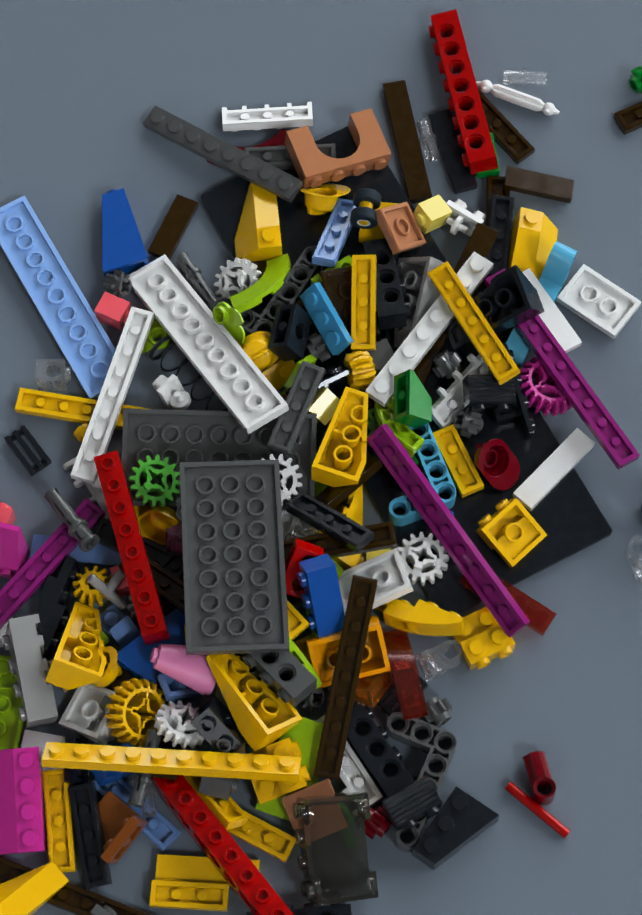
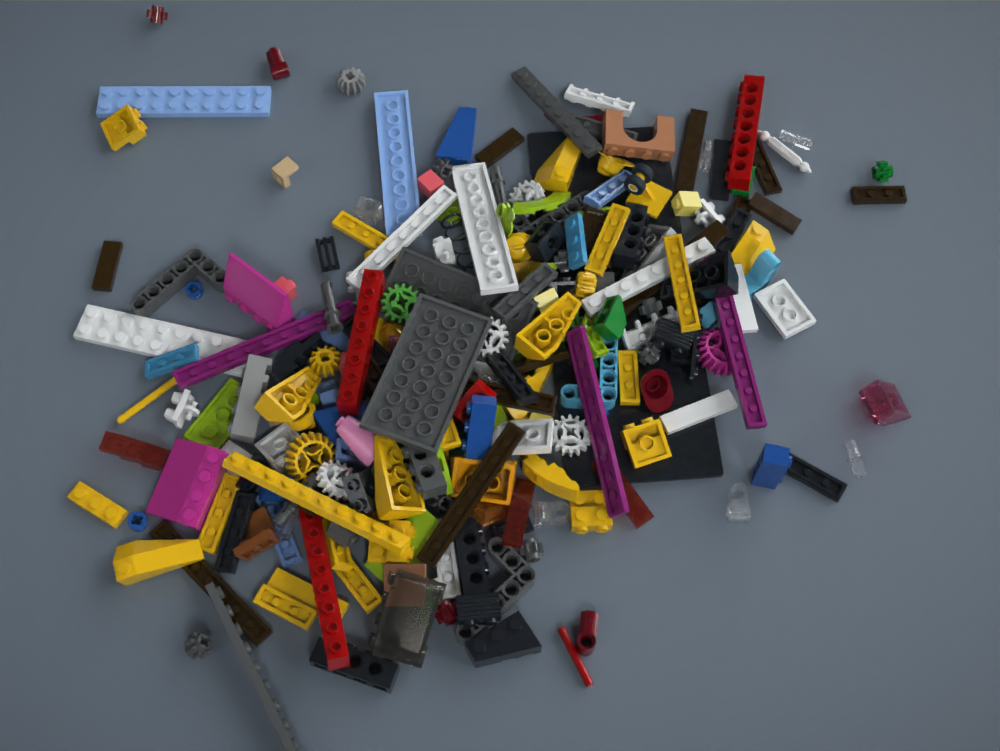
camera: 20 degrees right, 5 degrees down
(108, 590) = (332, 366): light grey piece -> none
(400, 227) = (658, 202): nougat tile -> none

